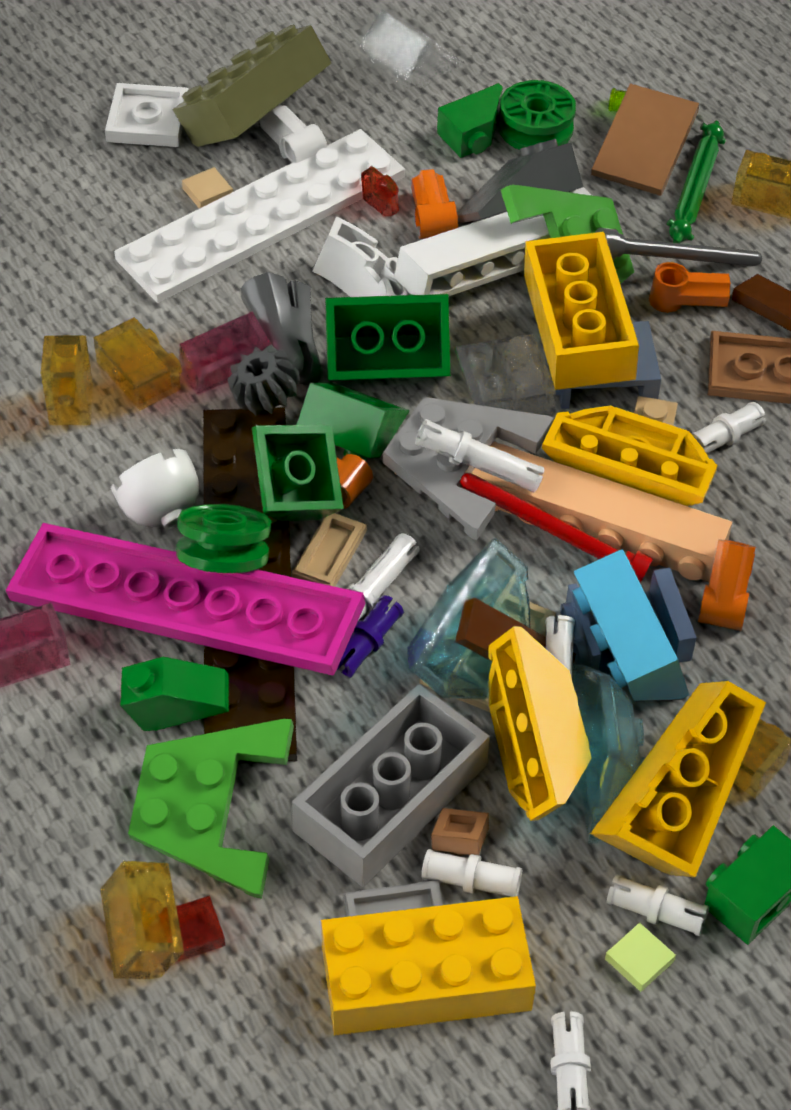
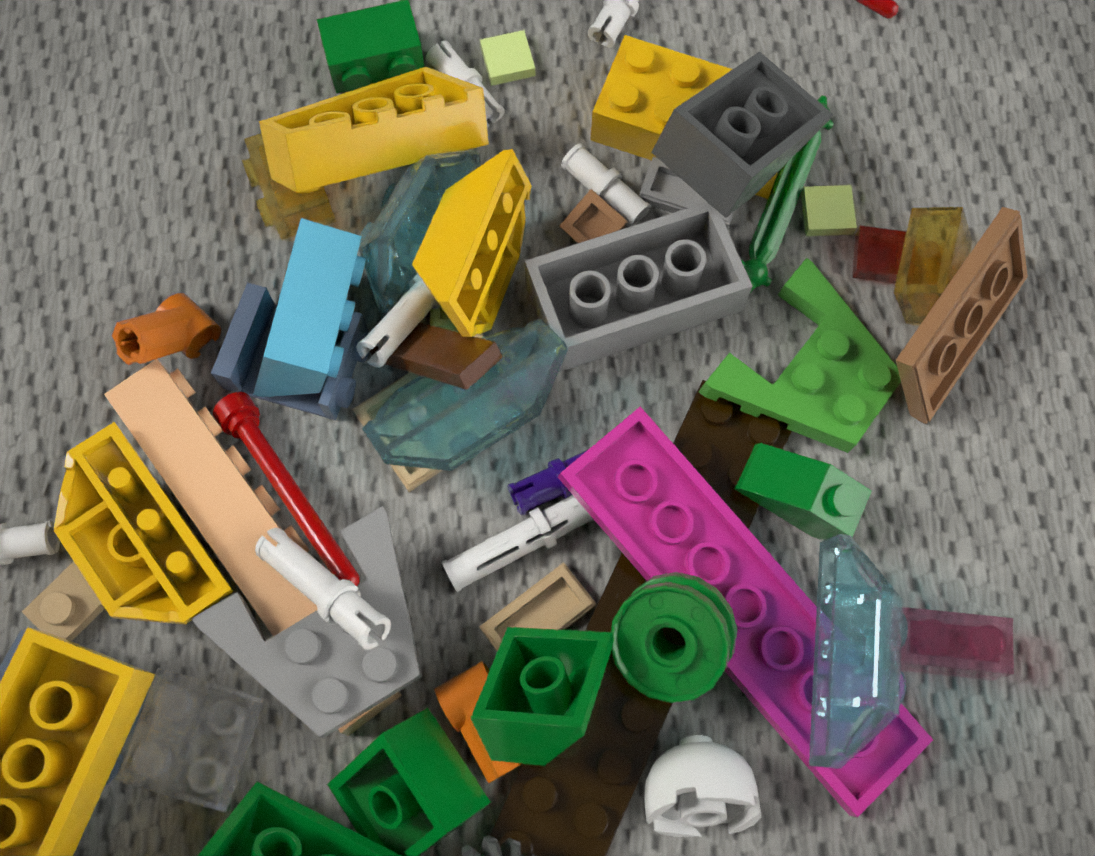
camera: 150 degrees left, 20 degrees up
(87, 589) = (855, 654): none -> clear light blue wedge
(96, 883) = (963, 316): none -> medium nougat tile
(260, 954) = (828, 210): none -> yellowish green tile
(308, 953) = (780, 208): none -> green wheel
(367, 908) = (739, 132): none -> dark grey slope

